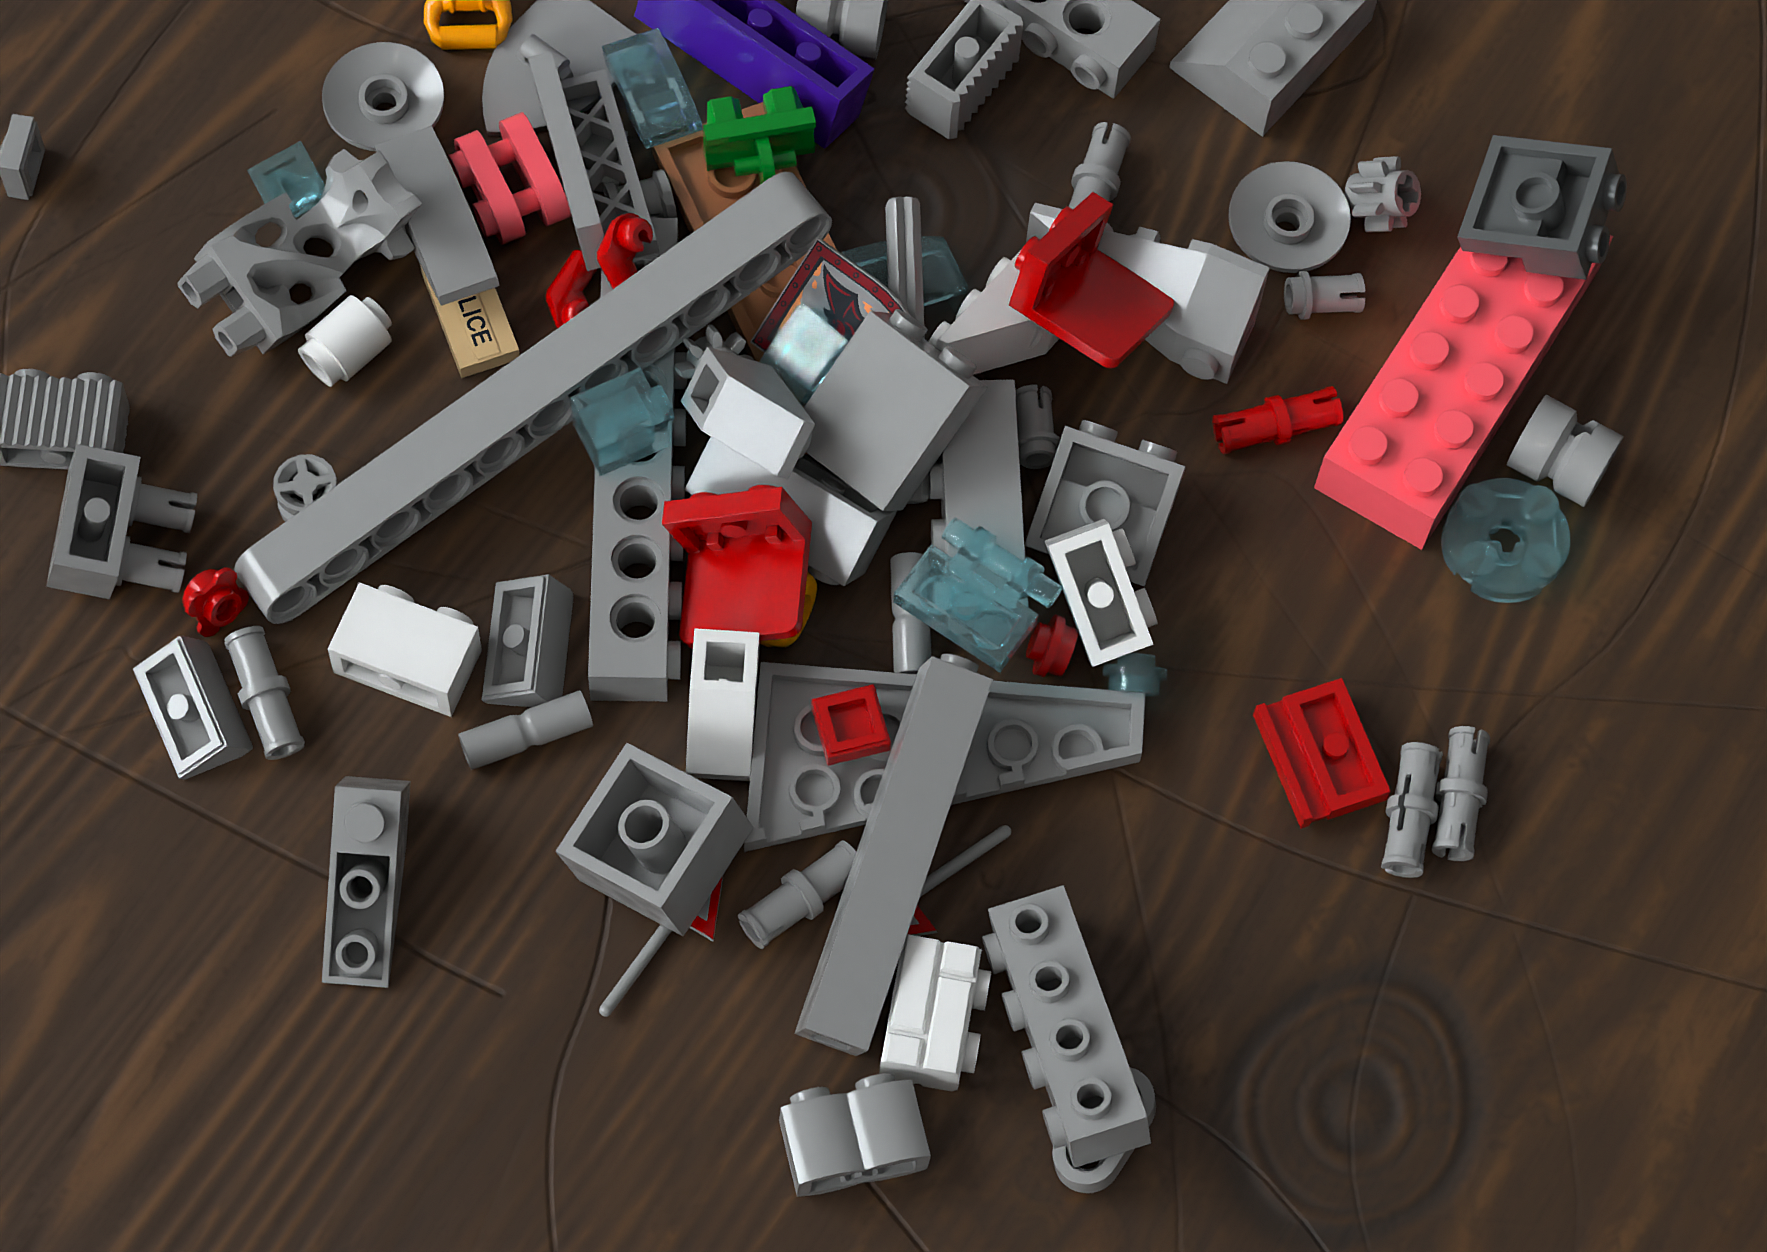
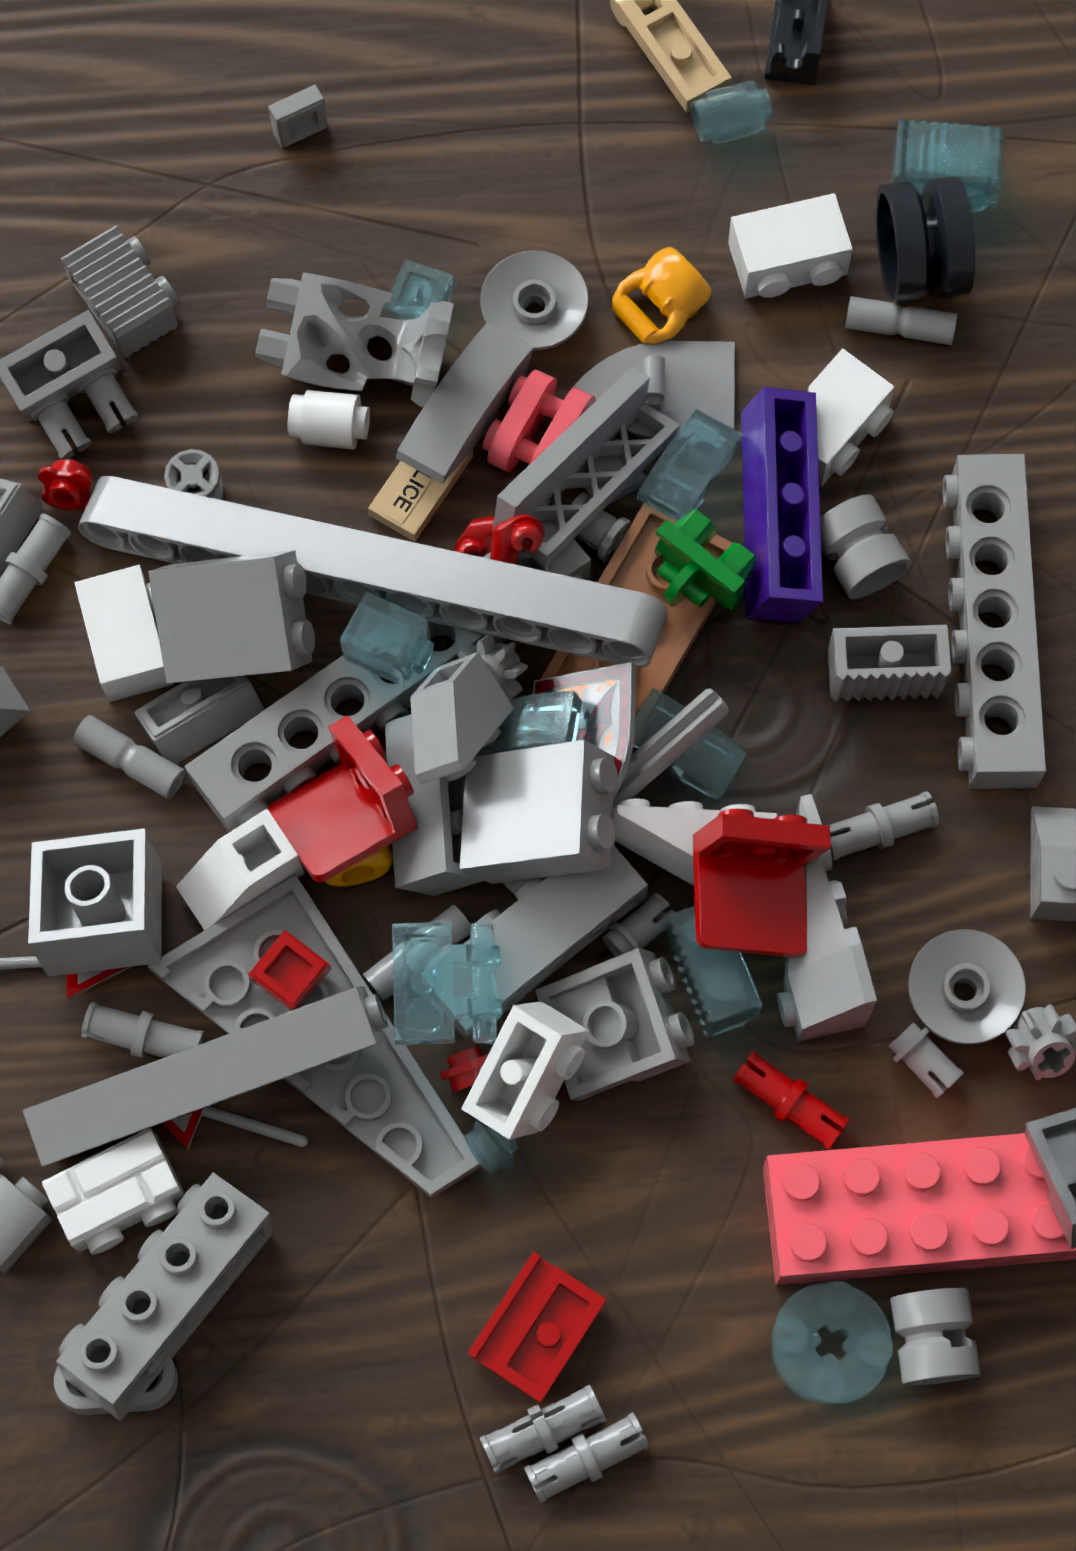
camera: 60 degrees right, 5 degrees up
(487, 531) = (232, 616): none -> light grey brick
(1135, 398) = (714, 978): none -> clear light blue brick

